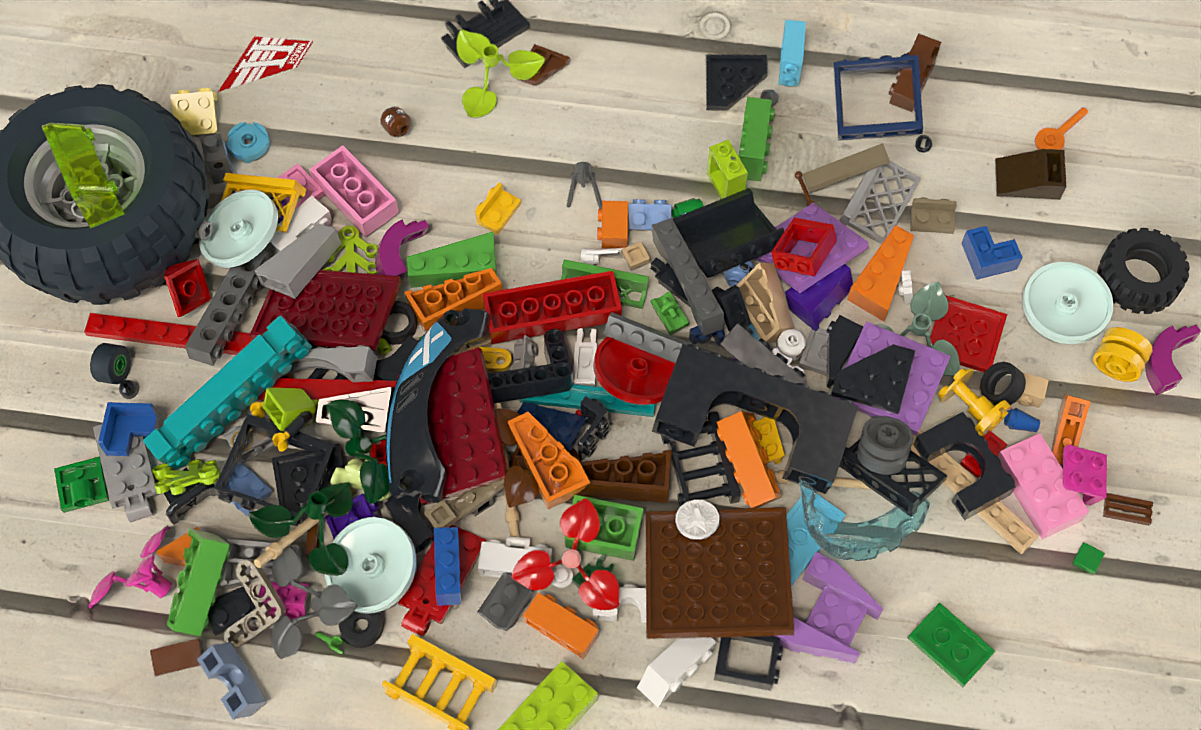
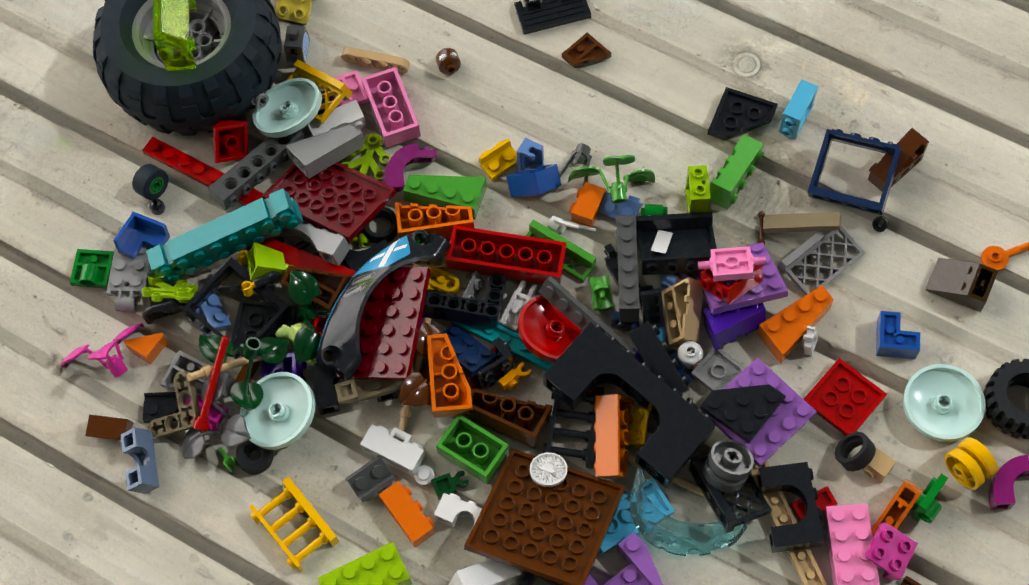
camera: 25 degrees right, 0 degrees up
(198, 582) = (144, 375): bright green wedge -> none
(251, 151) = (330, 47): medium azure plate -> none
(289, 608) = (201, 422): none -> red piece
(311, 146) = (375, 59): none -> tan beam
(424, 586) = (329, 441): red hinge -> none
(447, 566) = (335, 433): blue brick -> none
(475, 46) = (538, 20): lime plant -> none
(531, 191) = (529, 154): none -> medium blue hinge
(536, 571) = (402, 465): red plant -> none
(544, 220) = (534, 181): none -> blue panel
(612, 439) = (511, 379): none -> light orange plate
(635, 255) = (595, 236): tan plate -> none
(642, 196) = (617, 190): none -> bright green plant
(710, 236) = (661, 241): none -> white sticker
(771, 95) = (766, 140): dark grey hinge -> none
(802, 231) = (732, 263): none -> bright pink plate
(840, 344) = (731, 365): black slope -> none
(931, 305) = (825, 363): sand green plant -> none
(932, 215) = (861, 288): dark tan bracket -> none
(980, 408) = (828, 469): yellow piece -> none
(1020, 420) = (859, 488): blue cone -> none
(1099, 412) = (926, 506): none -> green plate

